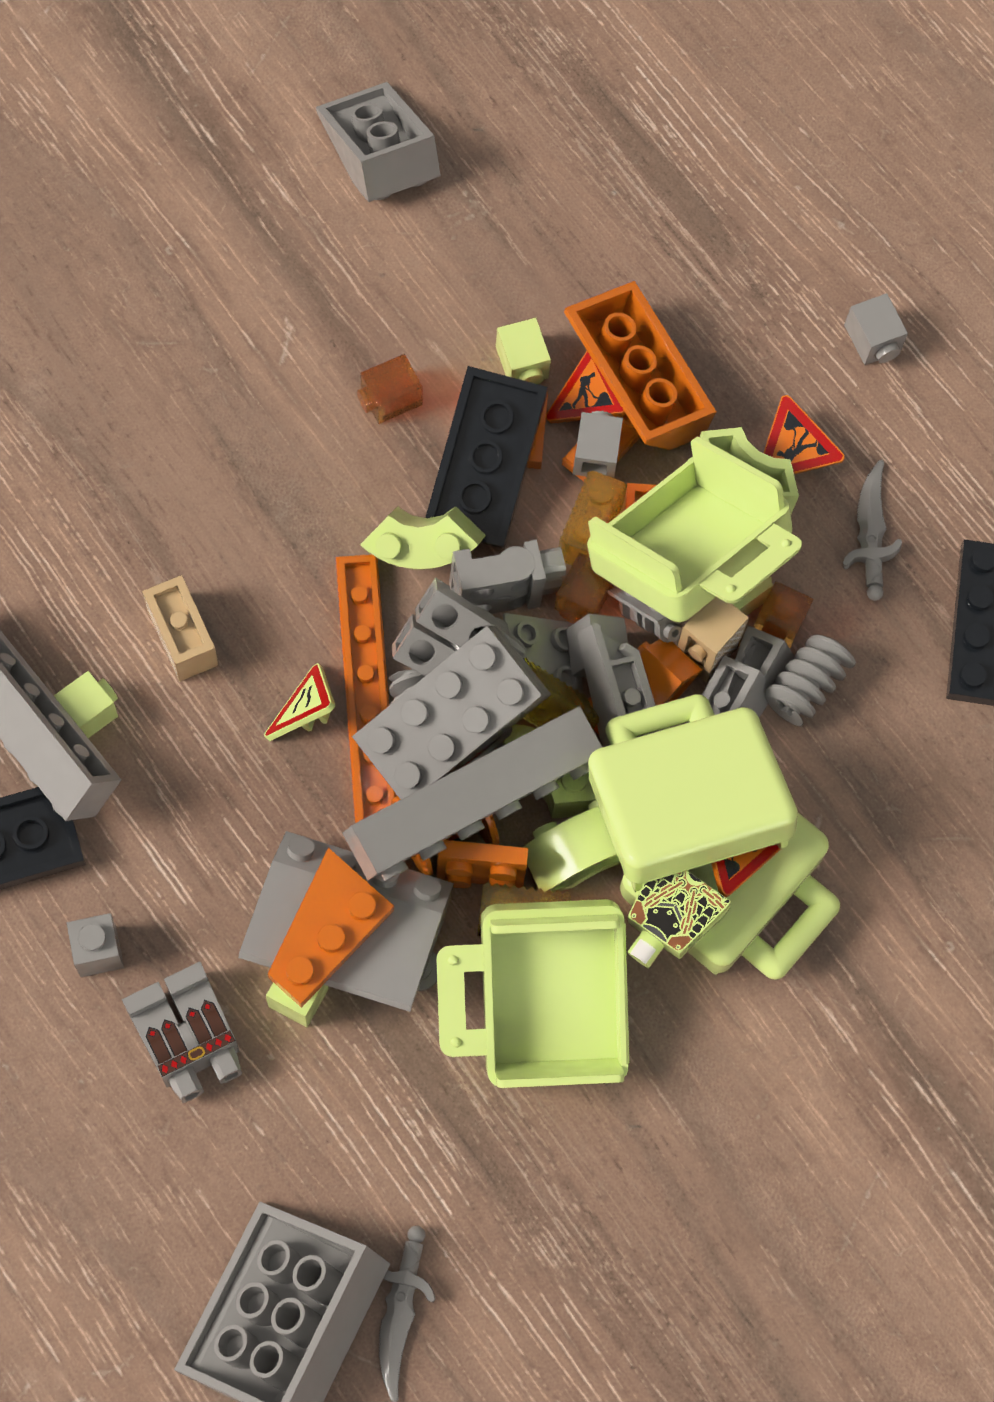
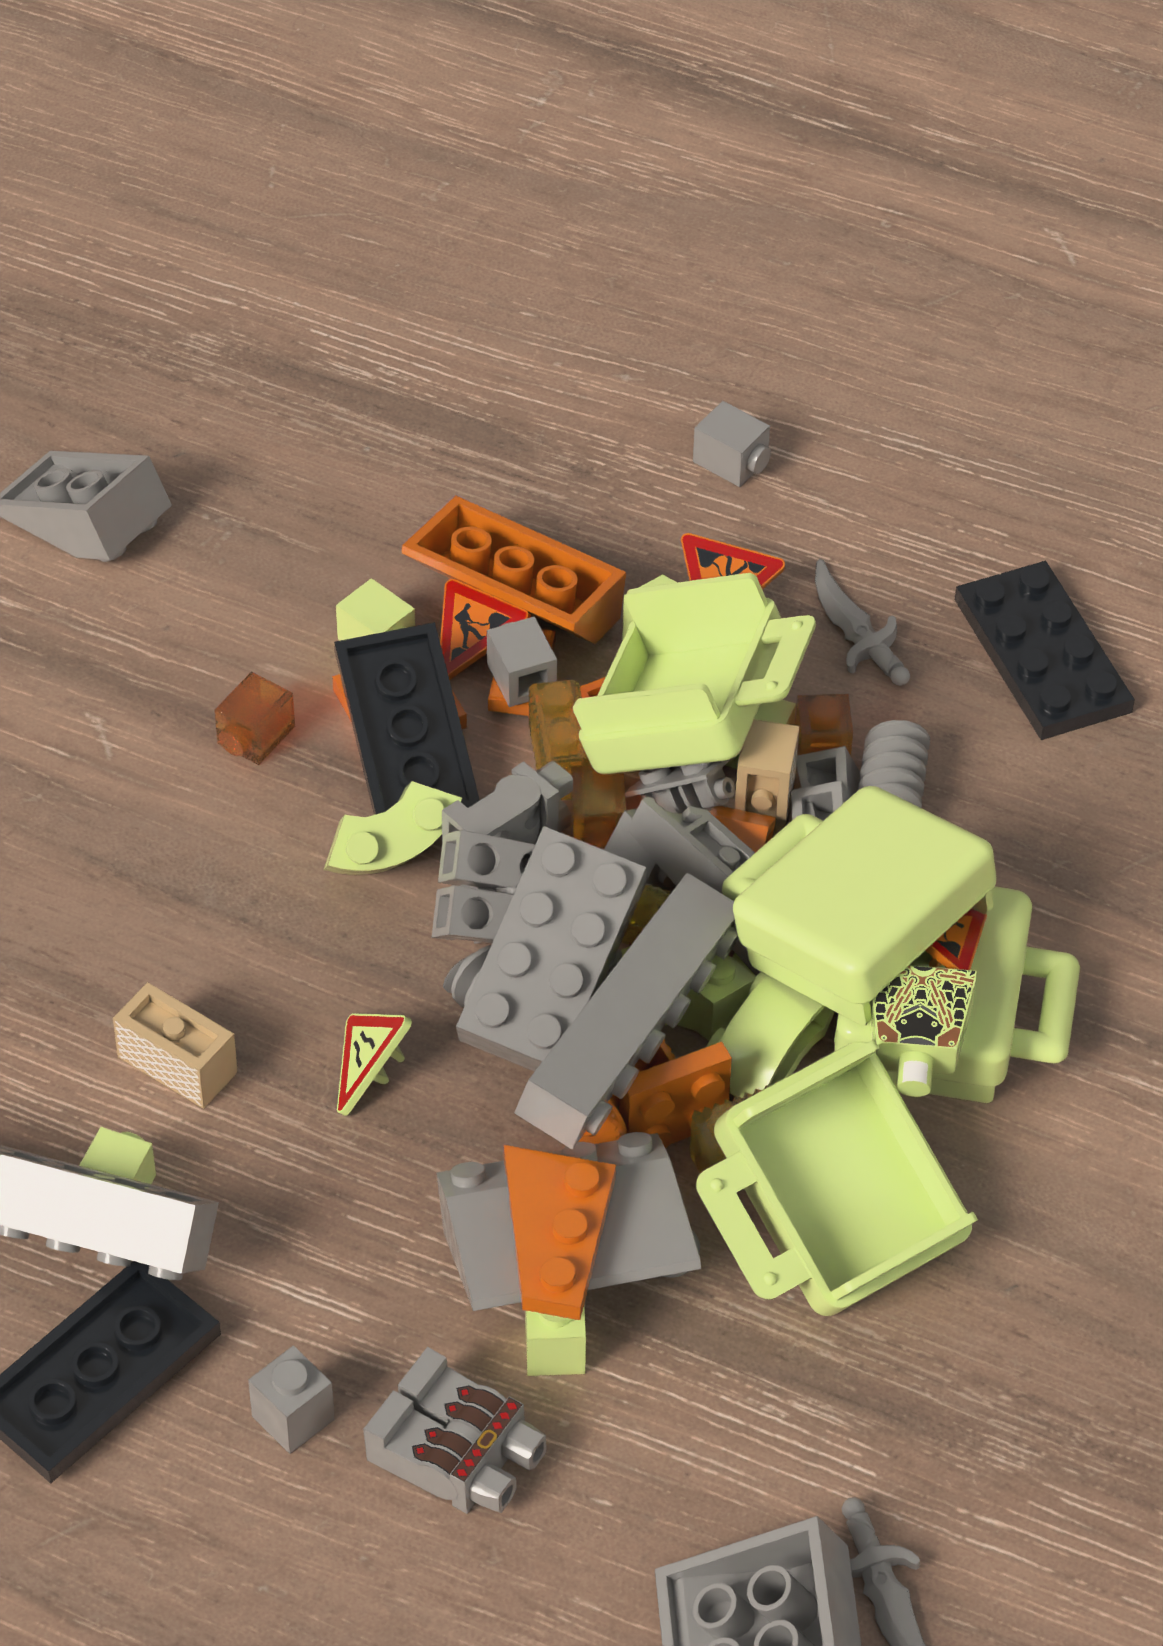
camera: 25 degrees left, 20 degrees down
(363, 672) = (404, 988): orange tile -> none

